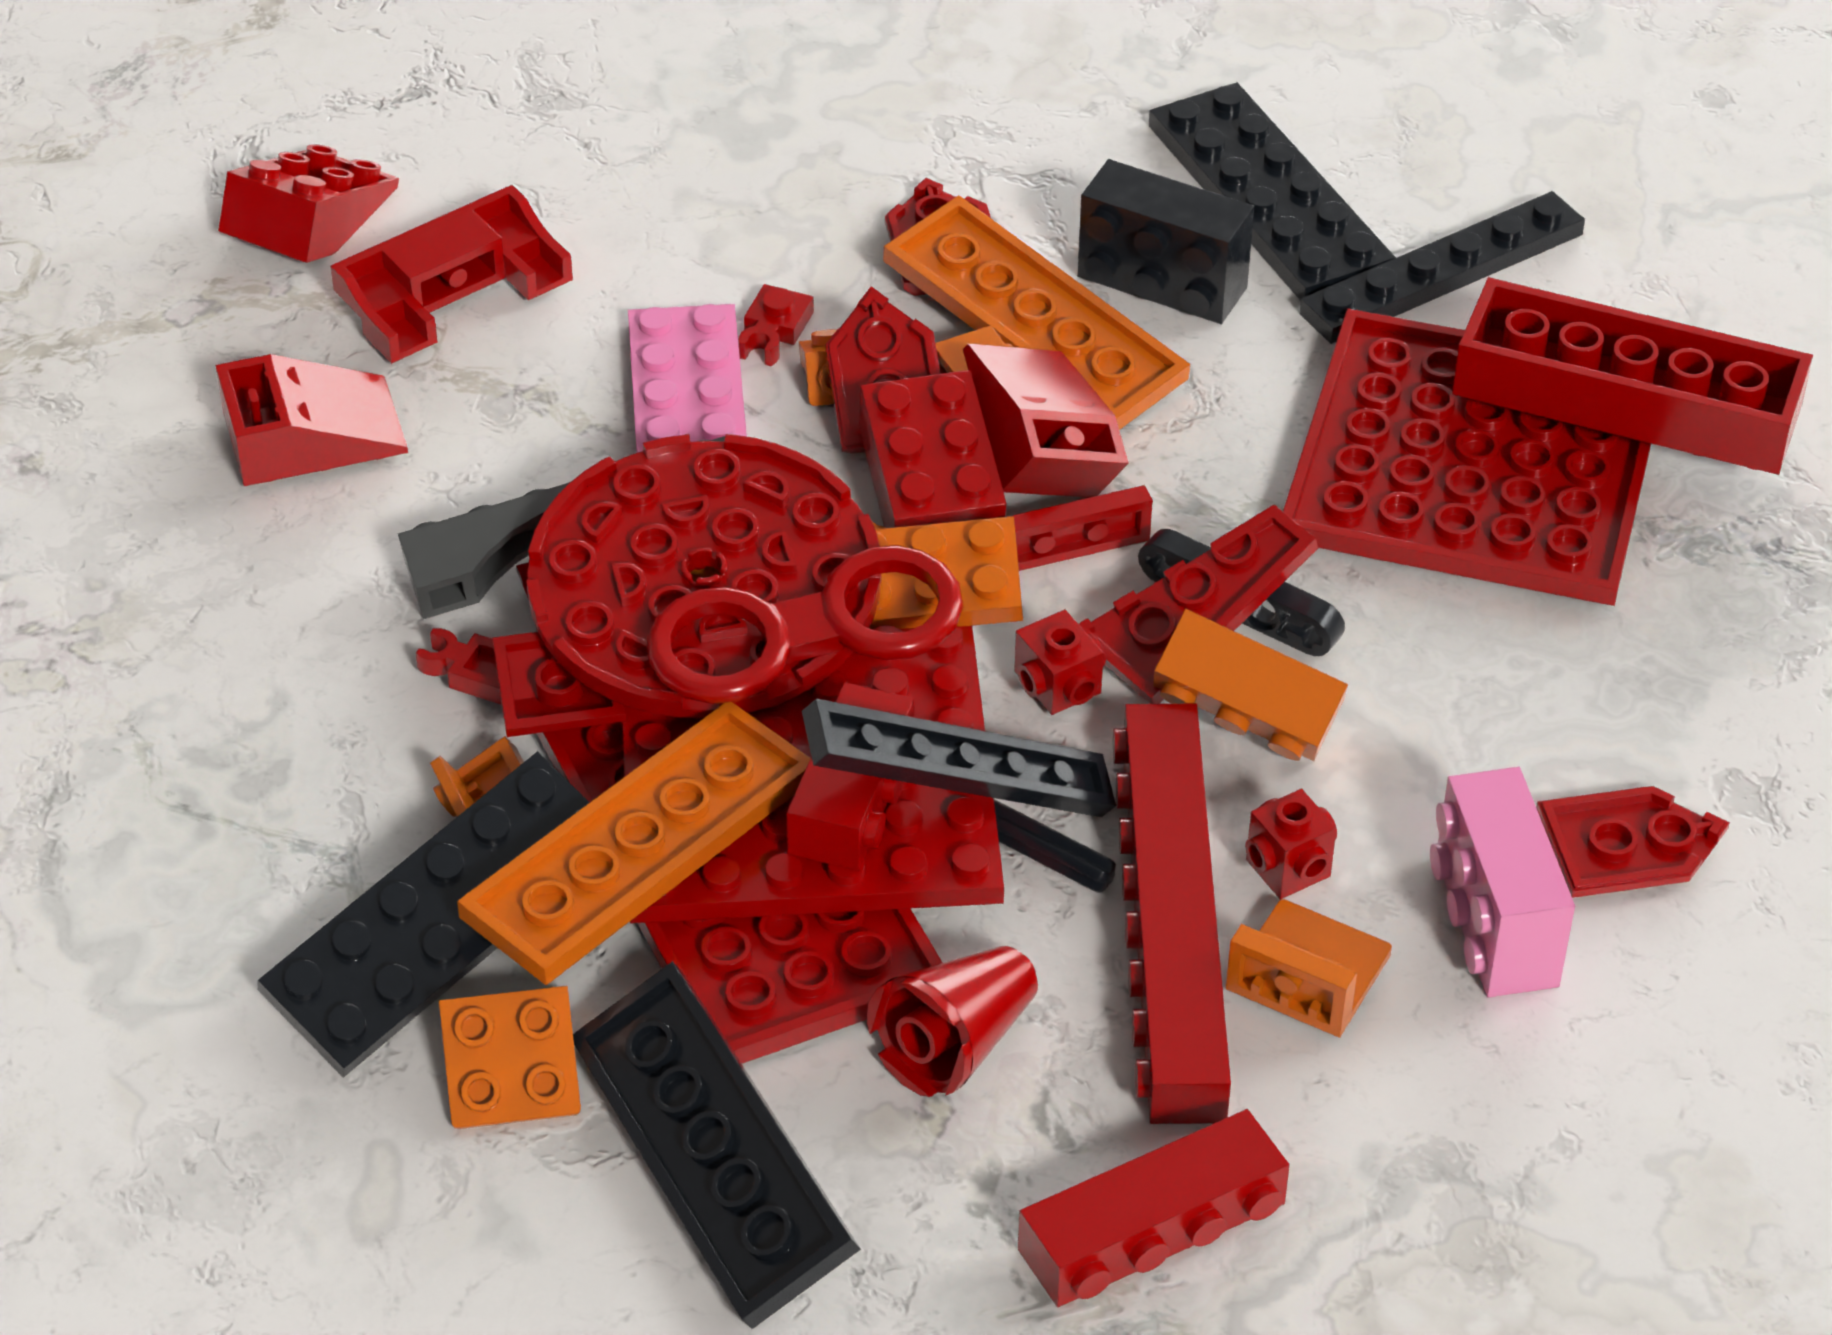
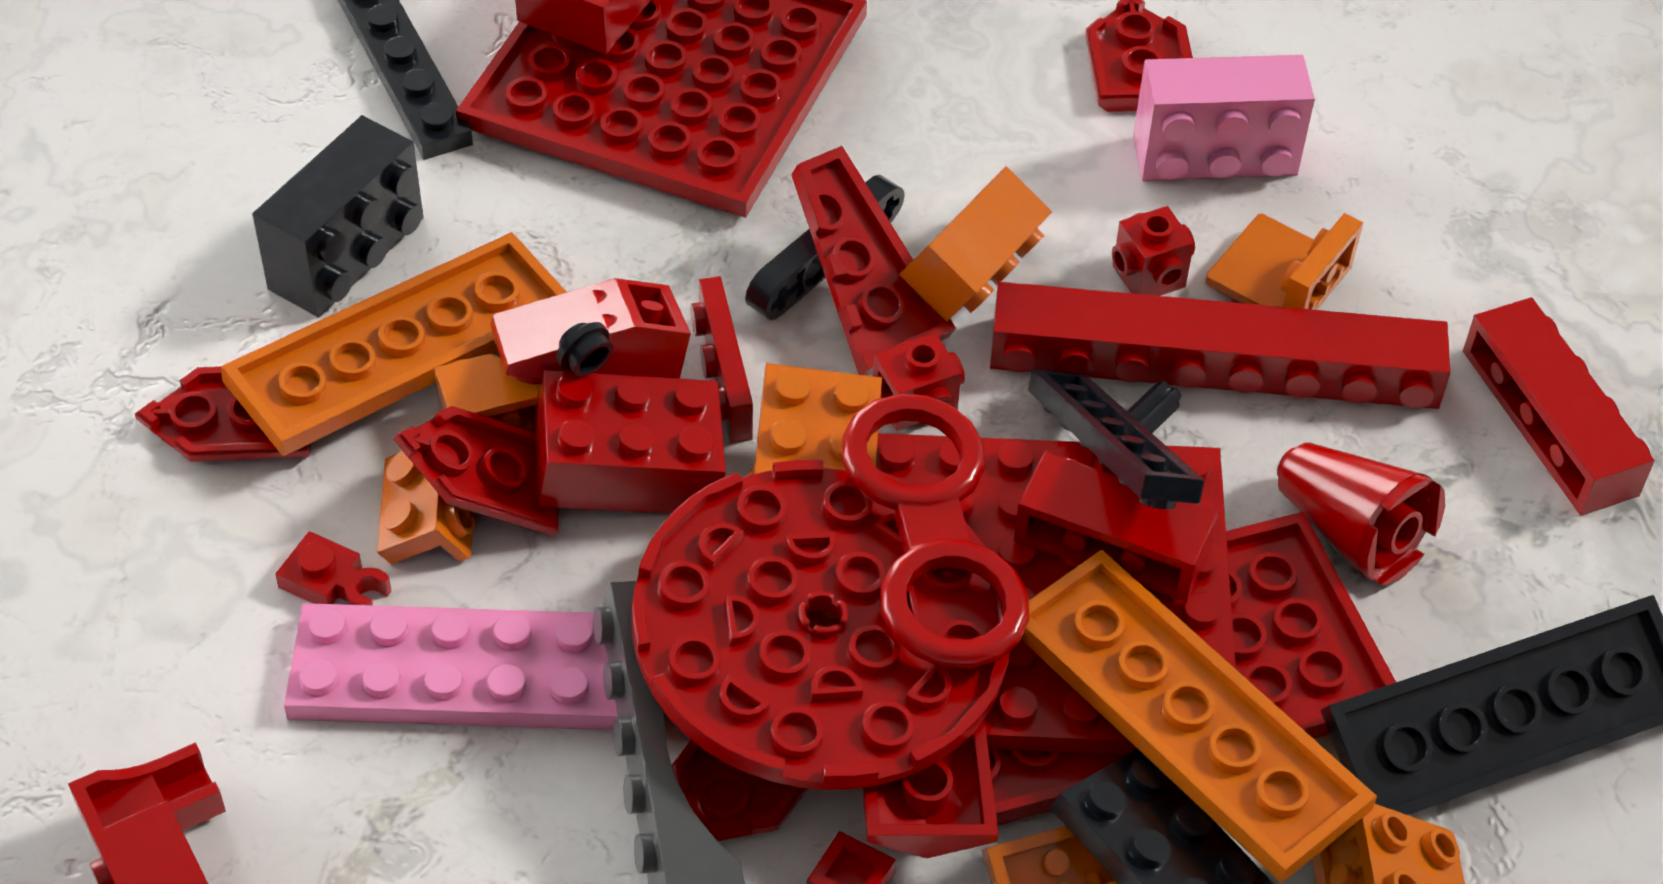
camera: 85 degrees left, 5 degrees up
(979, 375) = (584, 348): none -> black plate
(1298, 216) = (221, 149): black plate -> none

